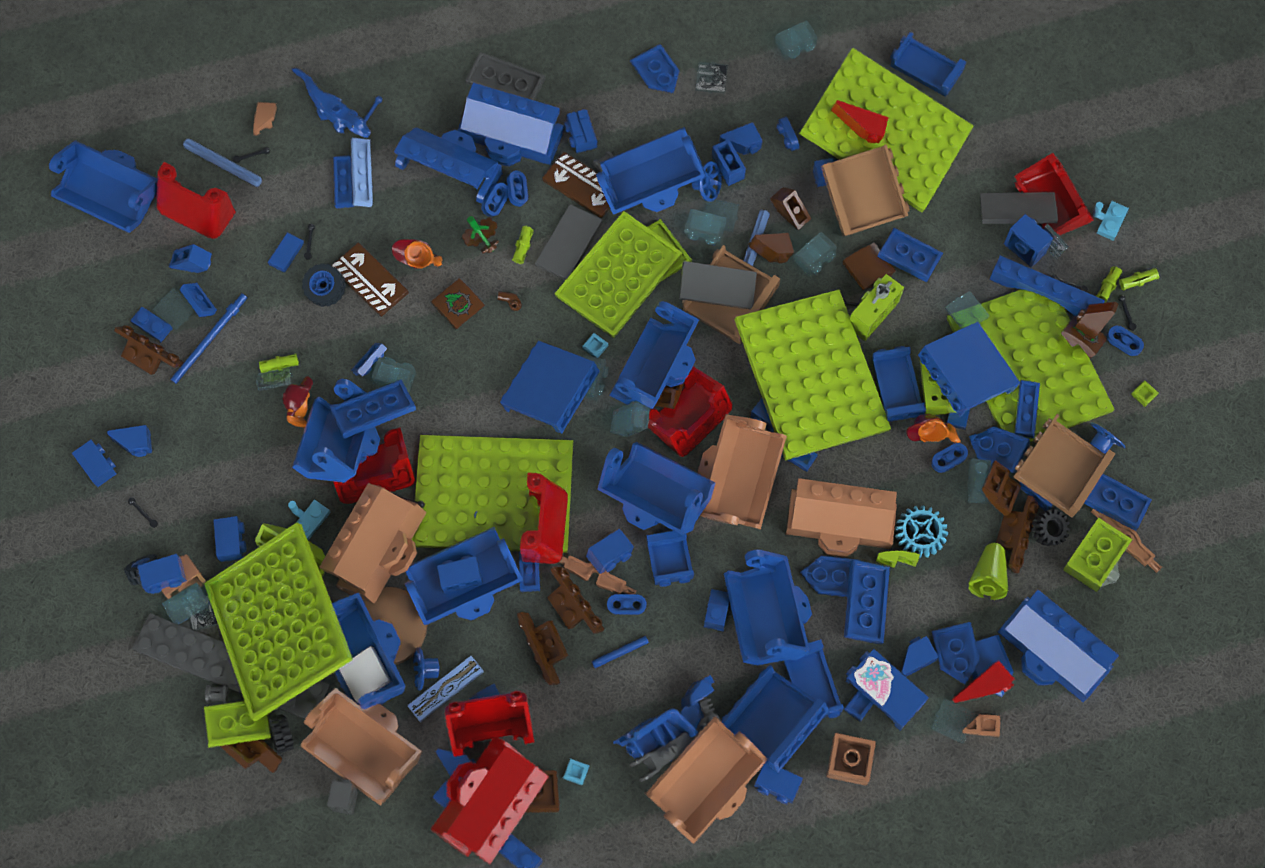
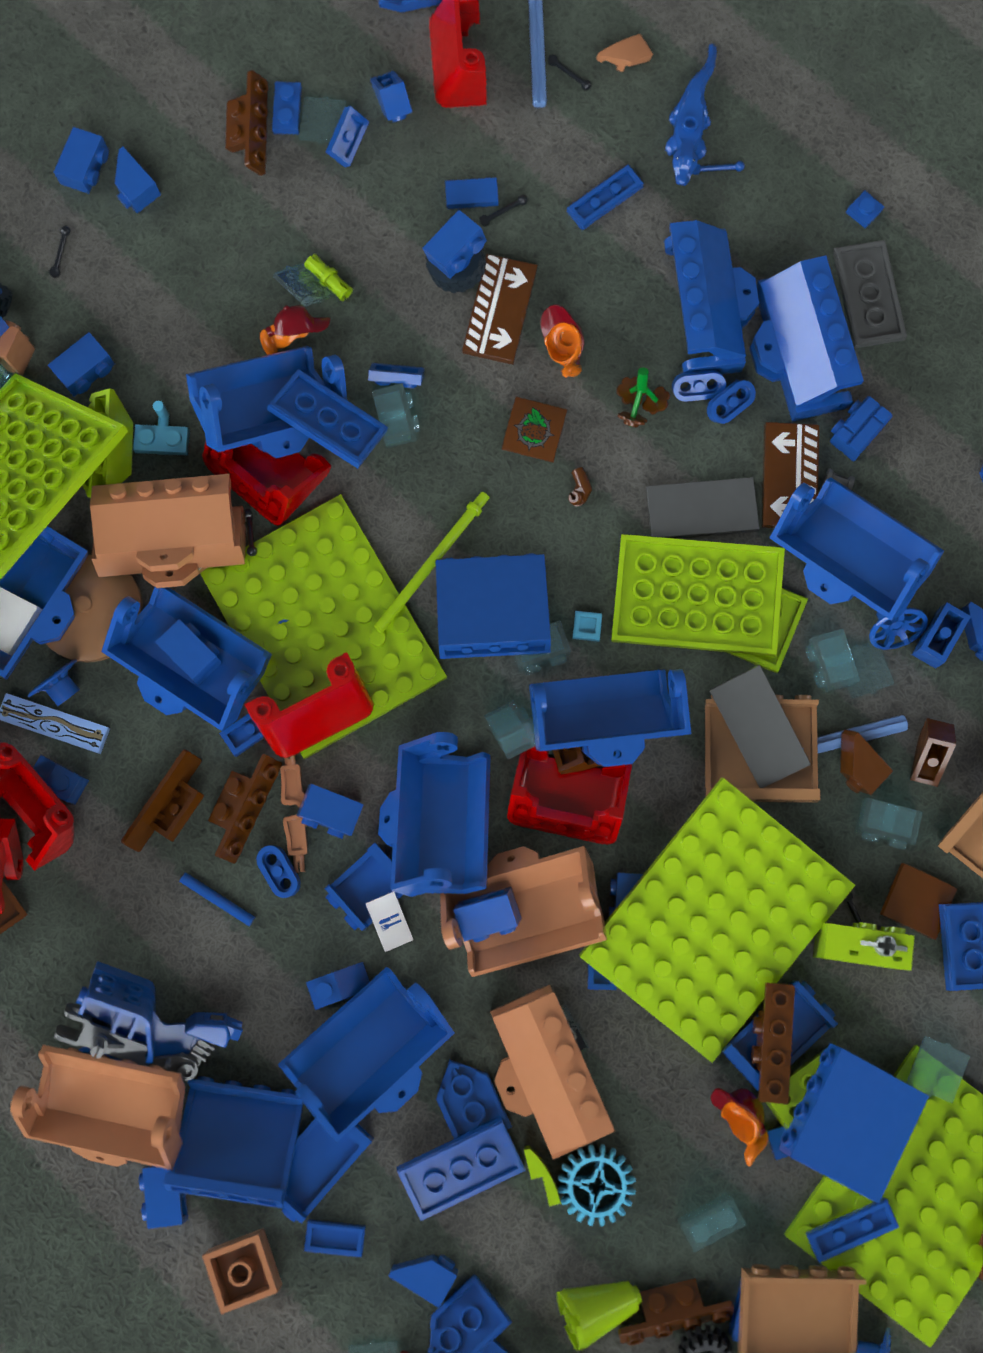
camera: 60 degrees right, 10 degrees up
(231, 311) = (359, 182): blue bar -> none
(317, 275) = (455, 244): none -> blue brick
(361, 172) = (630, 209): light blue tile -> none
(453, 51) = (865, 209): none -> blue plate
(482, 367) = (473, 510): none -> lime bar
(522, 245) = (661, 456): lime pin -> none
(576, 772) = (42, 939): medium azure tile -> none
(697, 558) = (389, 921): none -> white sticker
(730, 495) = (488, 915): none -> blue brick
(886, 688) = (361, 1261): blue panel -> none
(899, 385) = (774, 1043): none -> reddish brown bracket
(948, 458) = (719, 1163): blue plate -> none
(1000, 446) = (774, 1224): blue tile -> none
(1000, 488) = (716, 1259): reddish brown slope -> none

